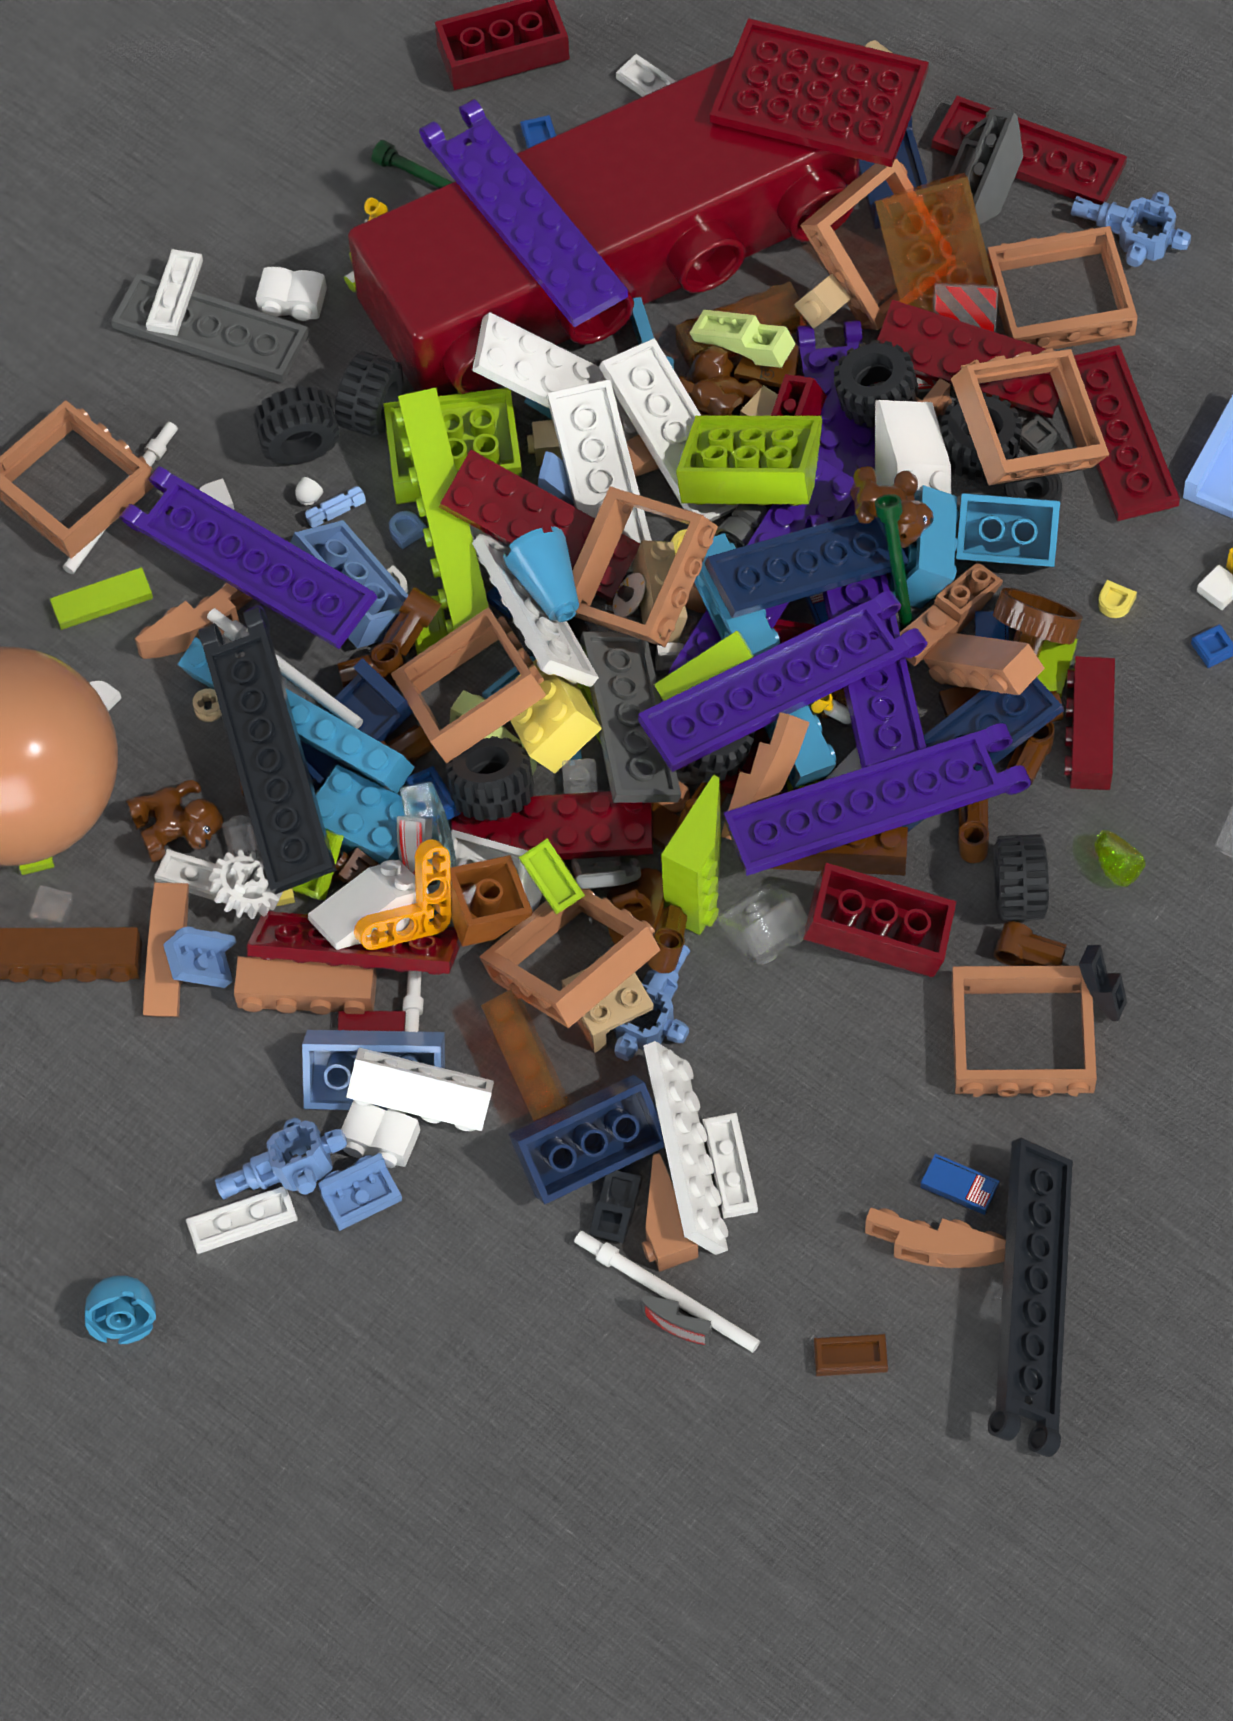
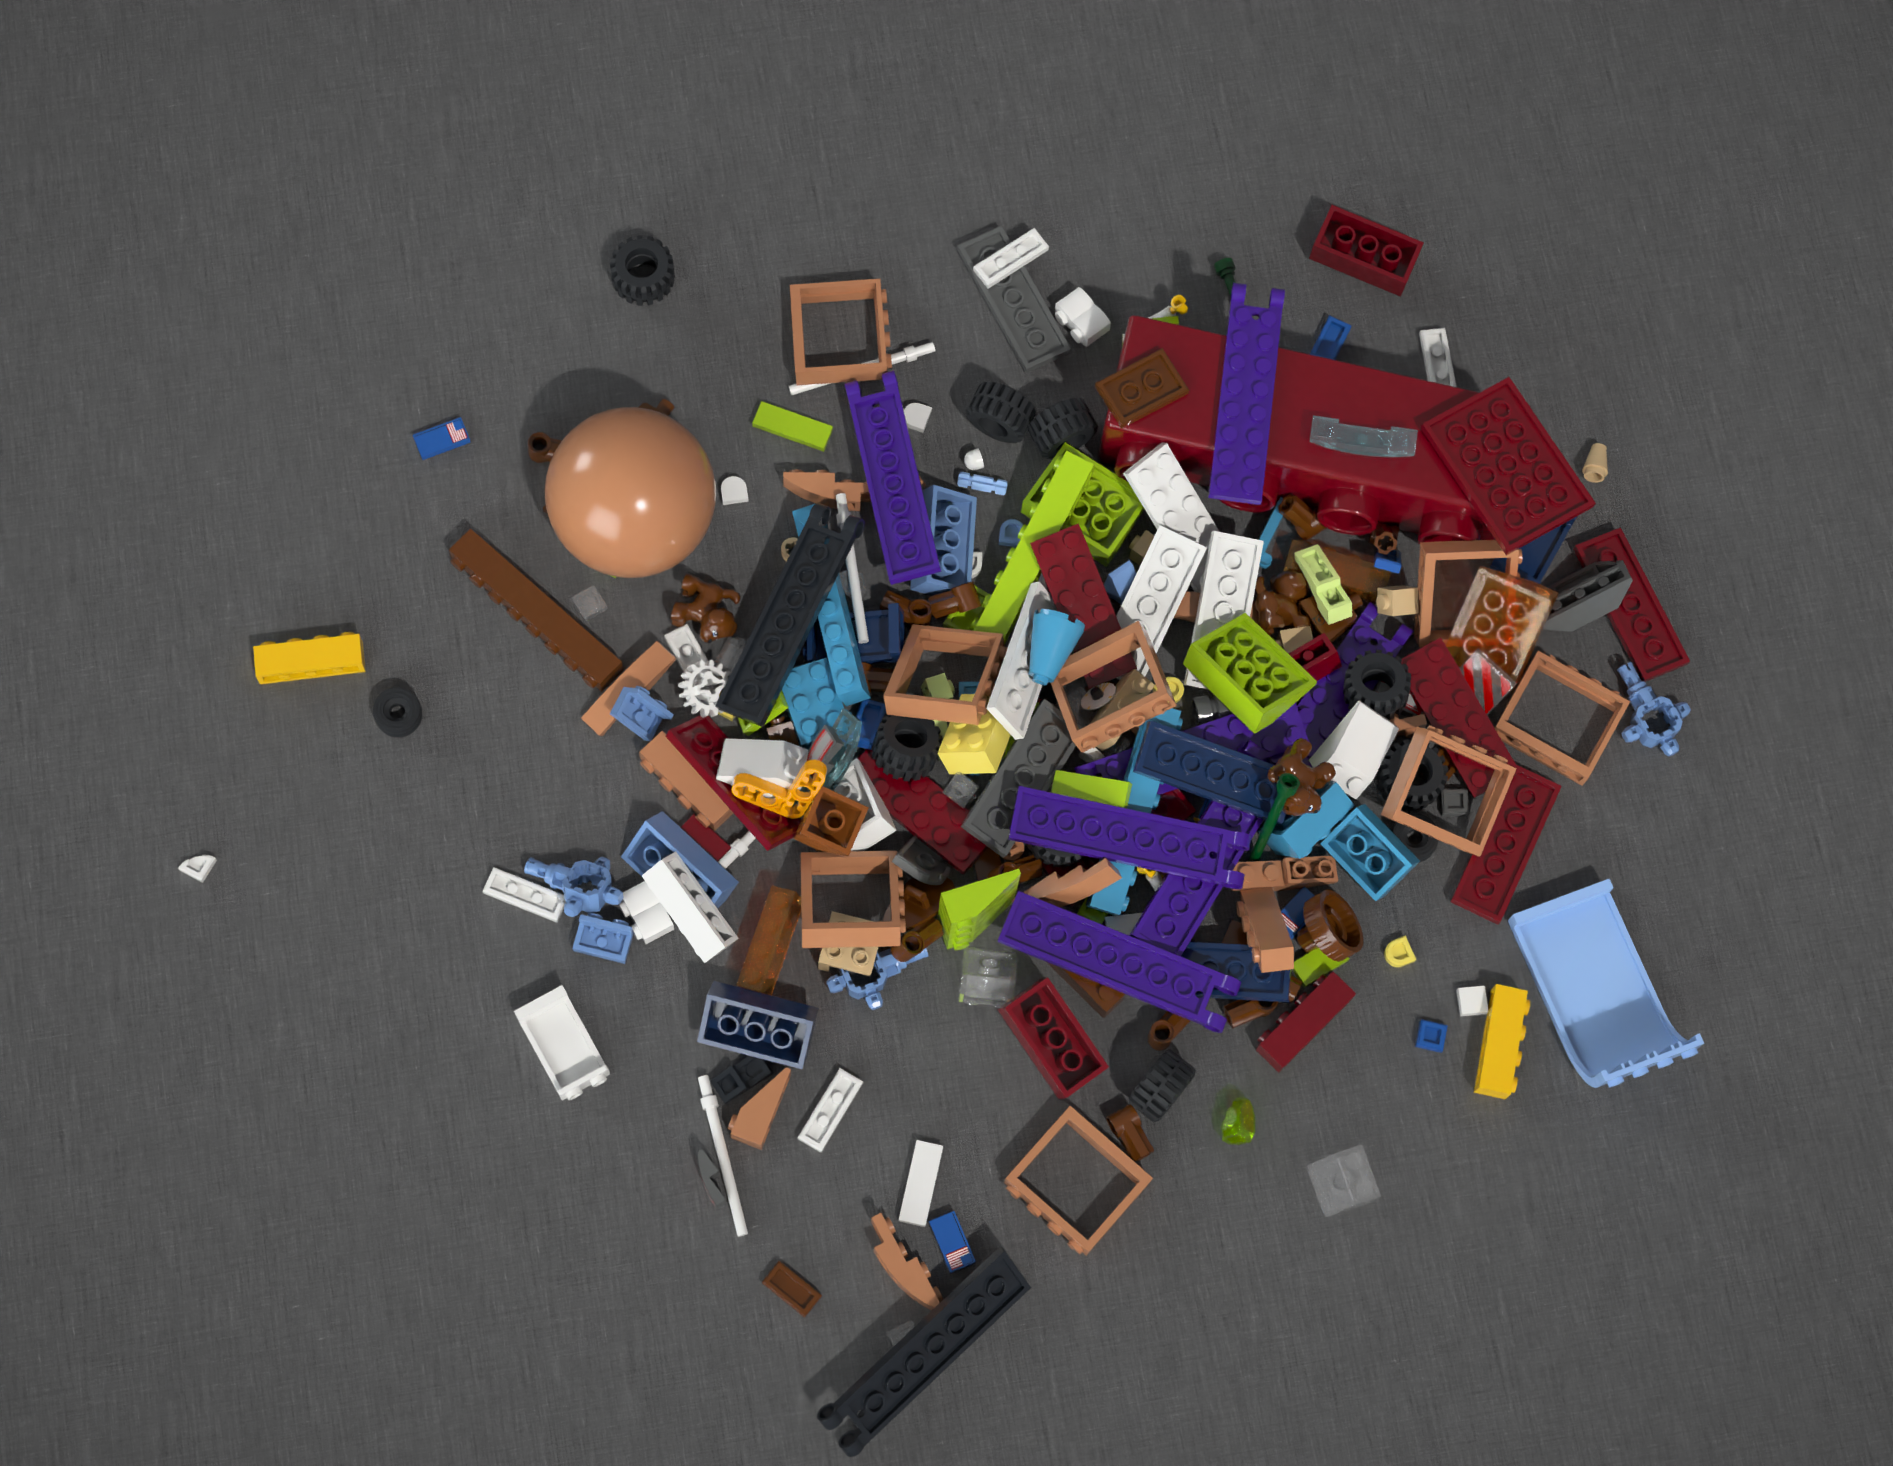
camera: 30 degrees right, 10 degrees up
(120, 1309) = (406, 889): dark azure cylinder -> none
(411, 1322) = (562, 1043): none -> white panel
(421, 281) = (1141, 388): none -> reddish brown tile
(551, 876) = (880, 842): lime tile -> none
(670, 301) = (1301, 516): none -> reddish brown piece
(671, 169) = (1363, 440): none -> clear light blue slope
(686, 1148) = (808, 1079): white plate -> none
(757, 262) = (1384, 537): none -> reddish brown piece
(777, 276) = (1388, 562): none -> blue tile
(879, 1157) = (920, 1183): none -> white tile
(1104, 987) = (1148, 1197): black slope -> none

